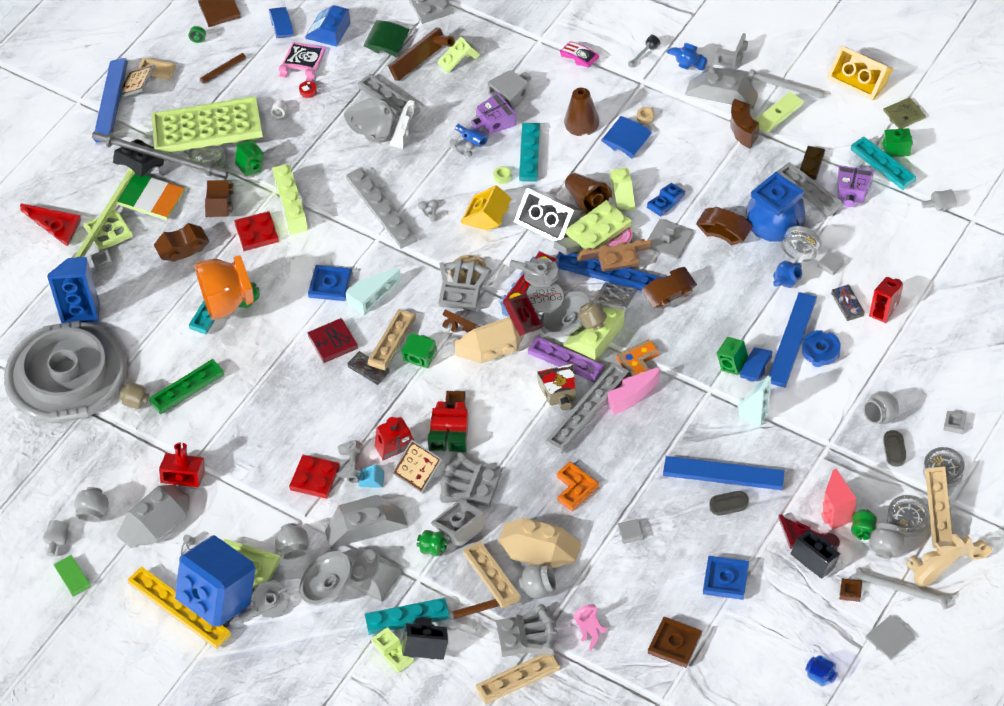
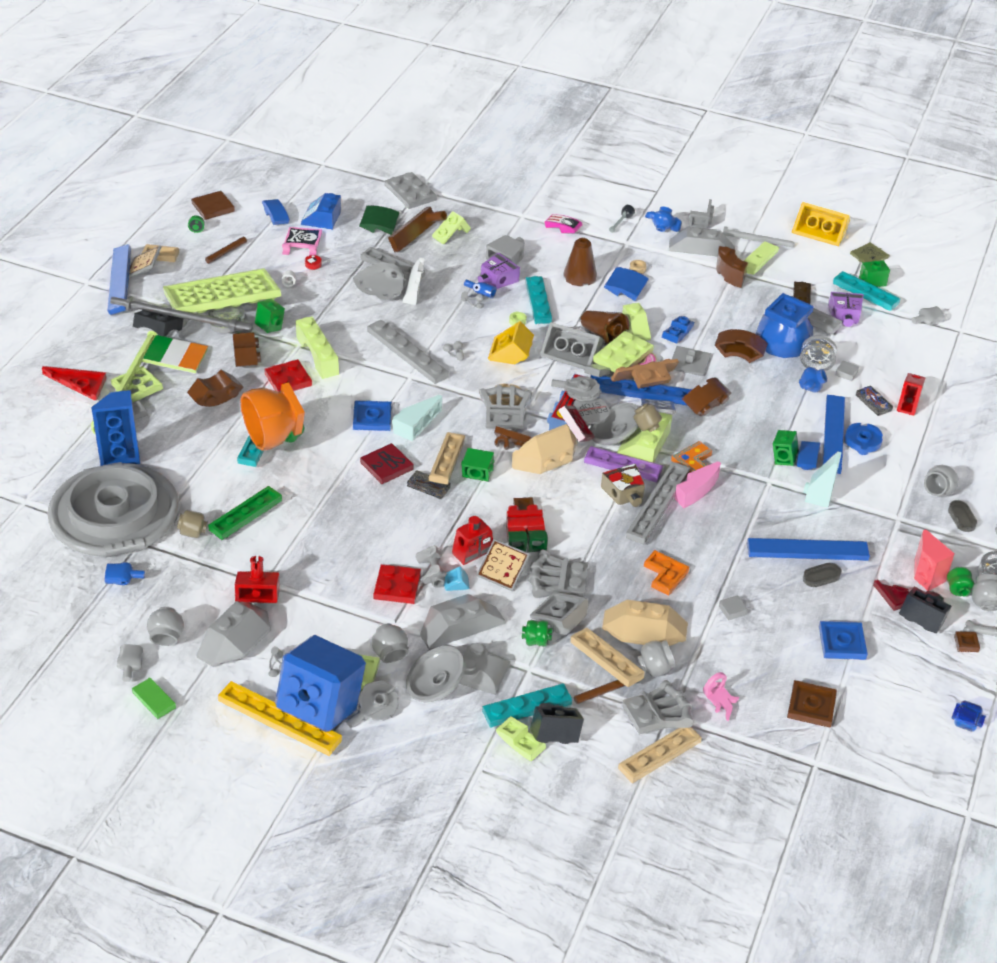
camera: 15 degrees left, 10 degrees down
(62, 443) = (121, 573): none -> blue piece

